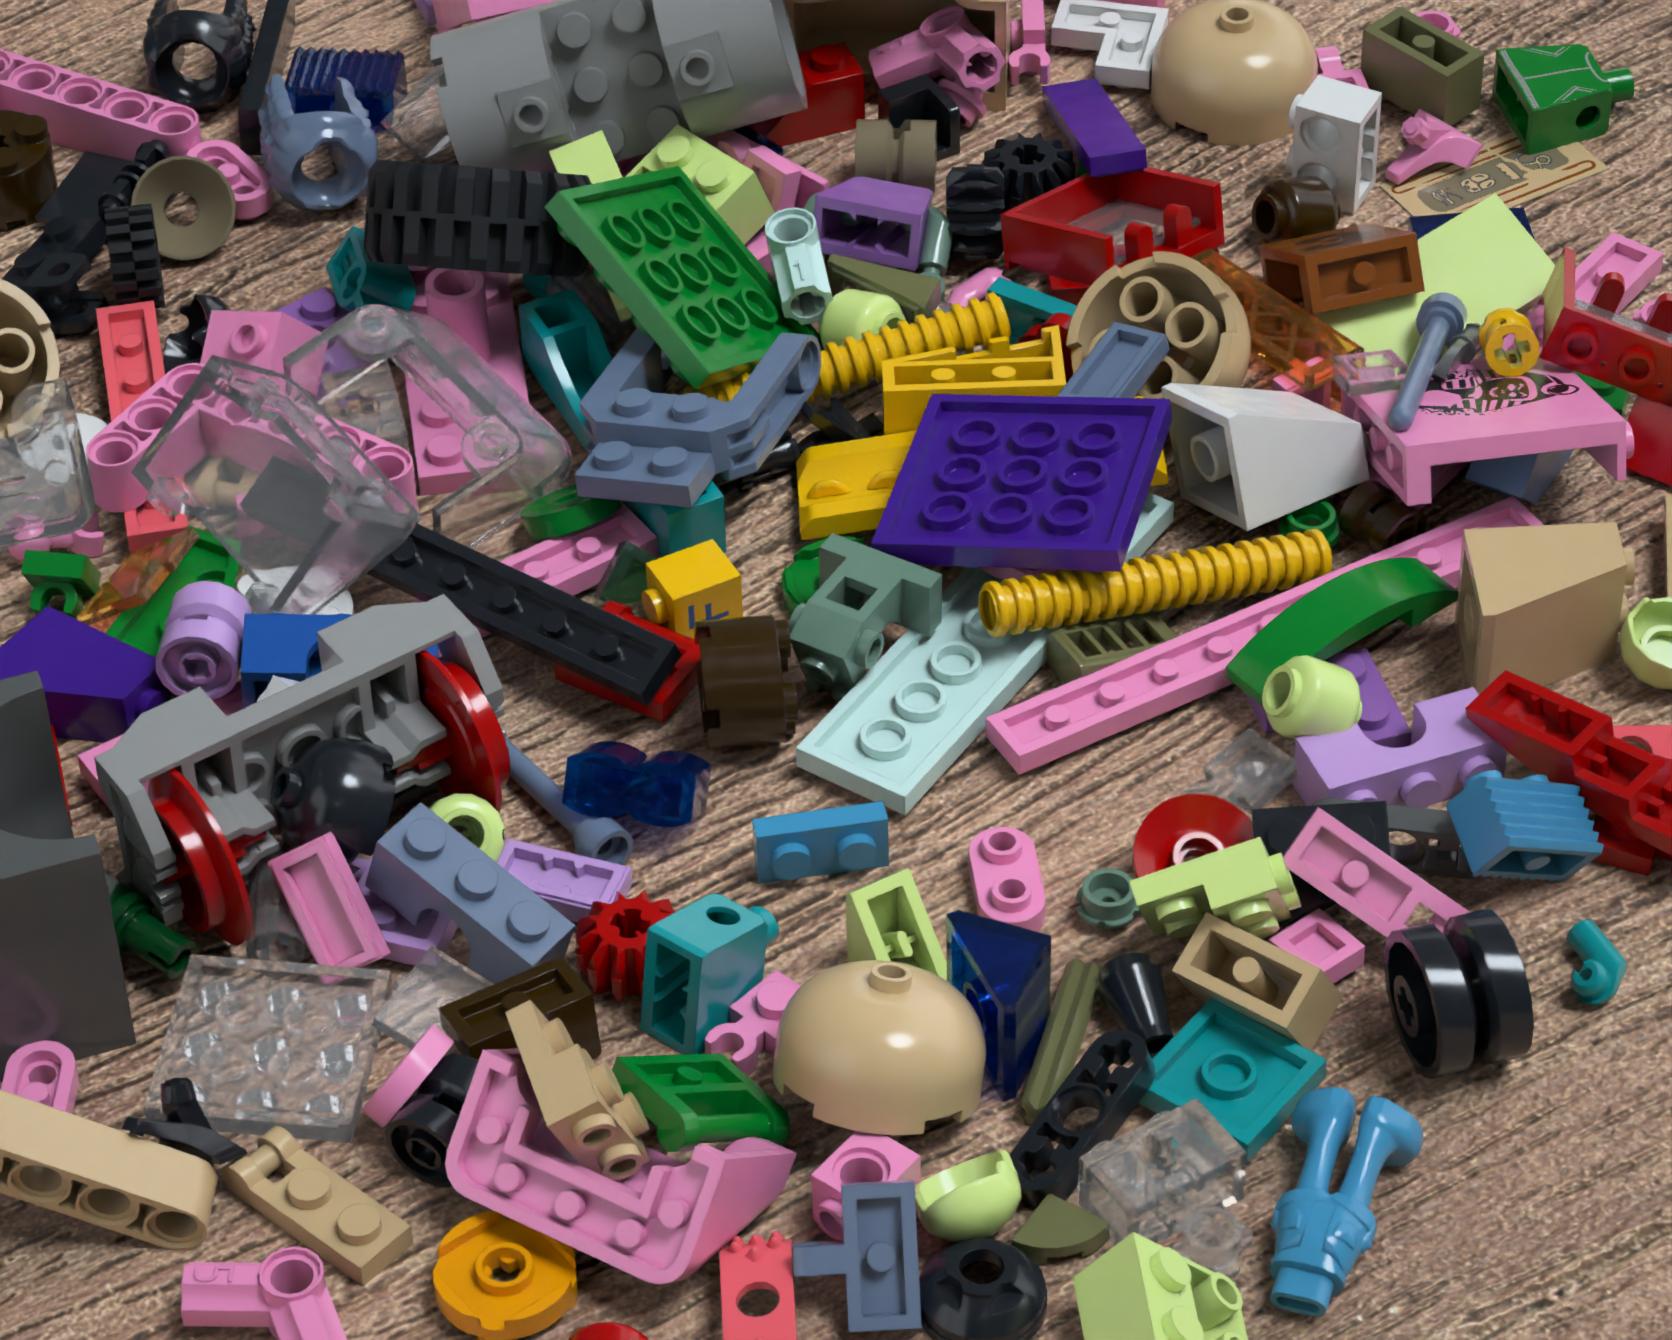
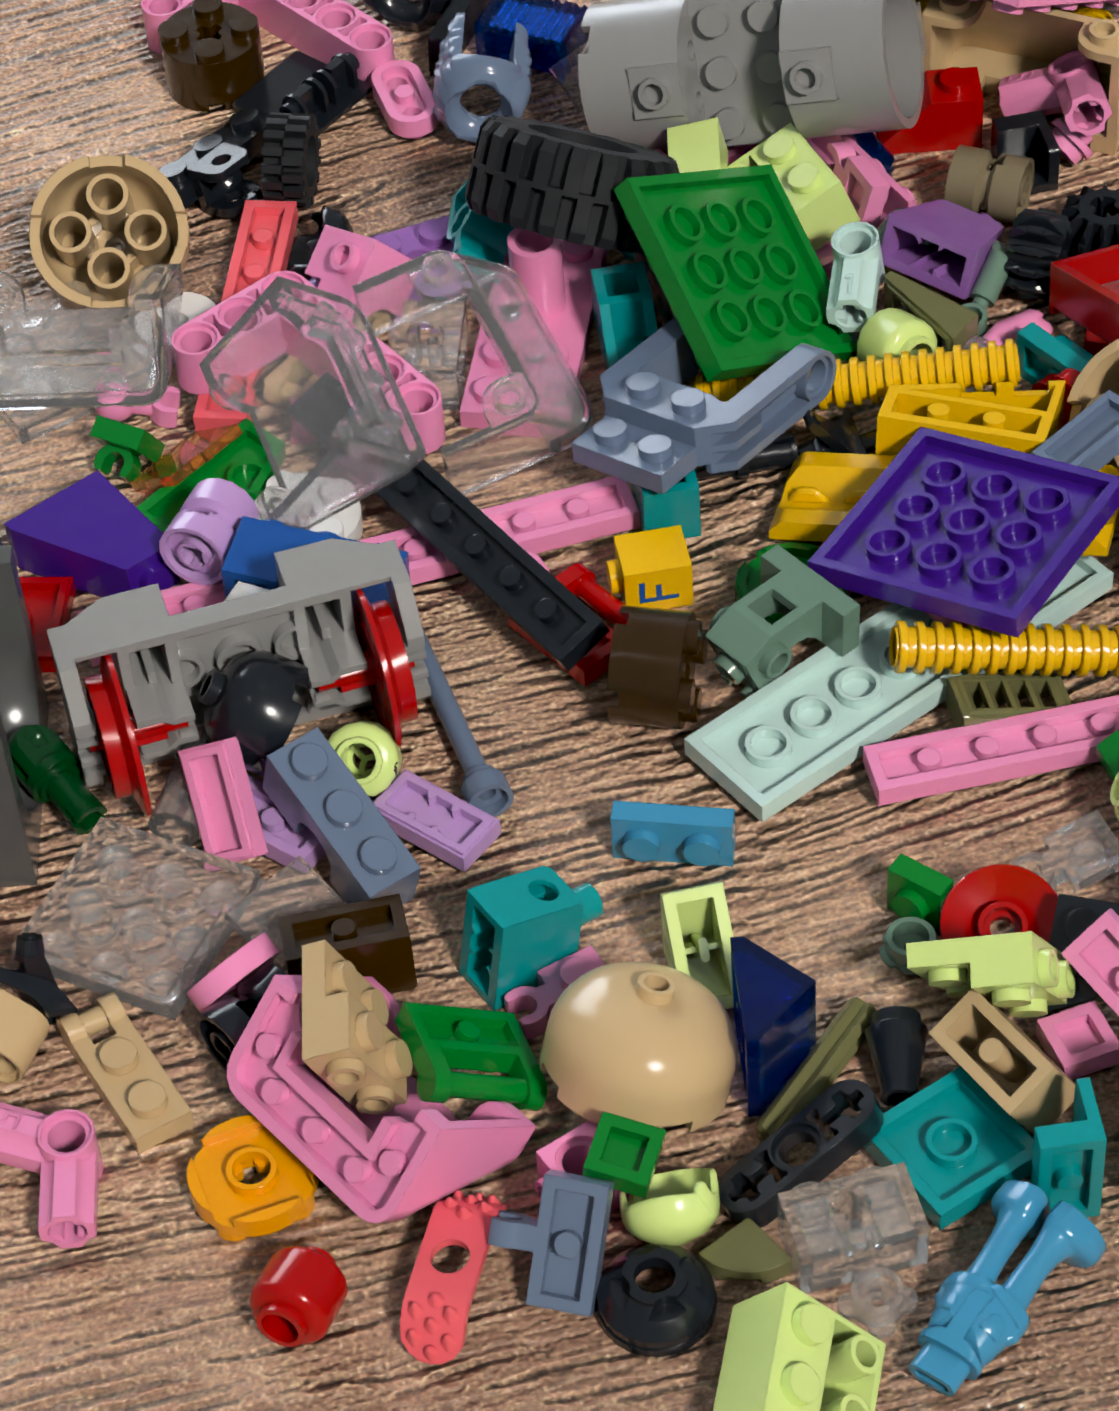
camera: 20 degrees right, 5 degrees up
(209, 190) = (329, 100): dark tan piece -> none
(565, 513) = (561, 474): green piece -> none
(614, 943) = (448, 883): red gear -> none
(620, 779) = (537, 748): clear blue brick -> none
(624, 575) = (598, 541): clear green tile -> none
(913, 1149) = (624, 1153): none -> green plate
(1007, 878) = (830, 903): bright pink plate -> none
(1098, 842) = (917, 890): none -> green plate
(1367, 1045) = (1072, 1155): none -> teal panel

